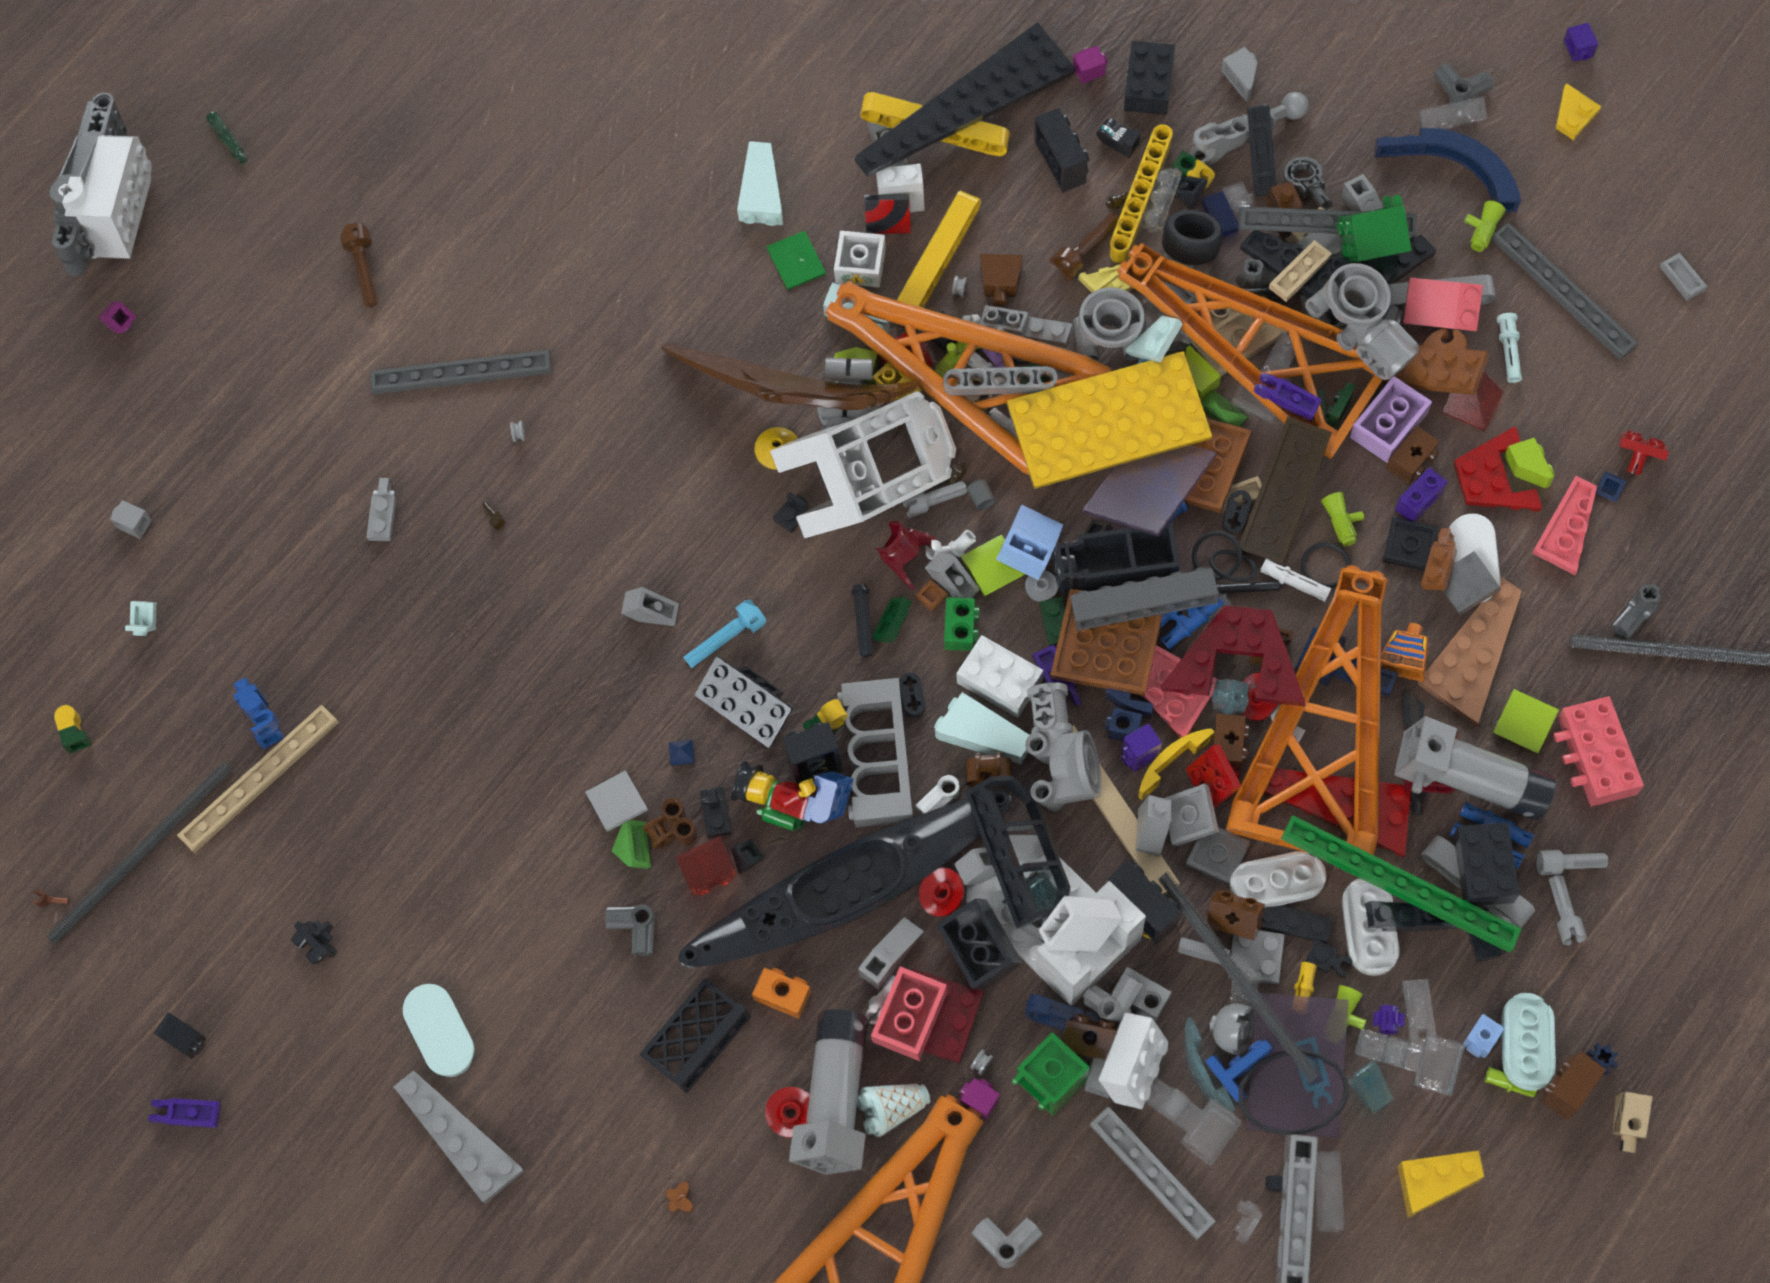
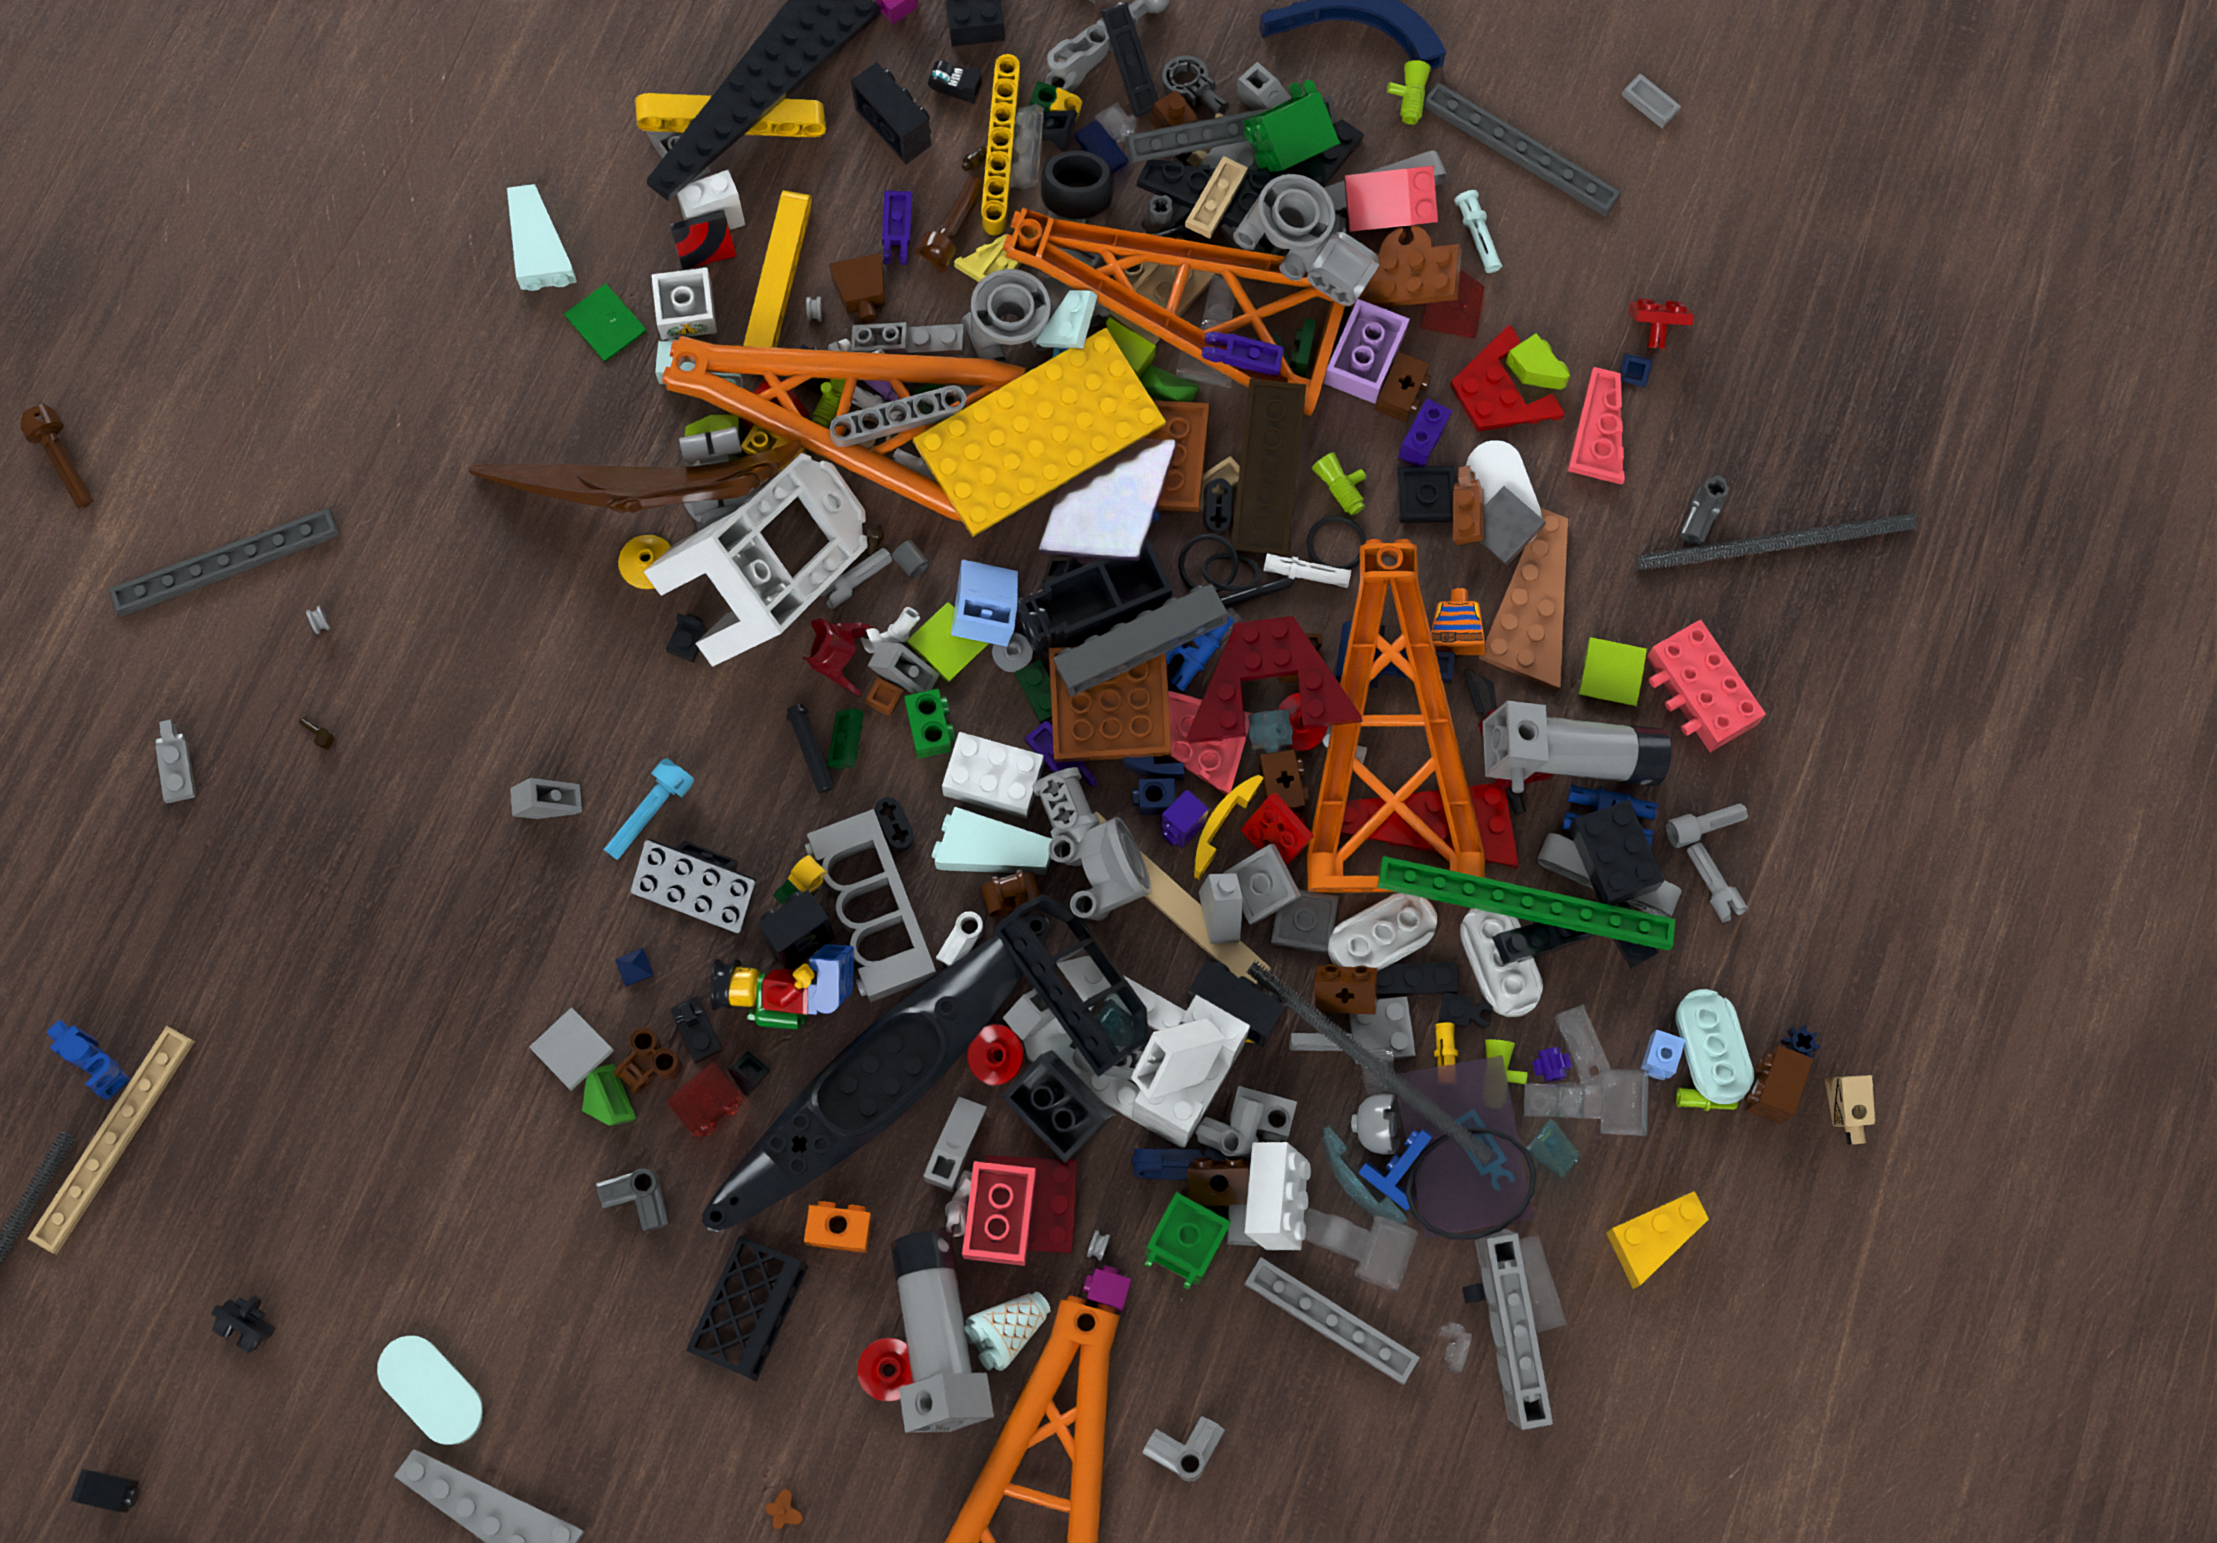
camera: 25 degrees left, 5 degrees up
(1042, 236) = (896, 224): none -> dark purple hinge

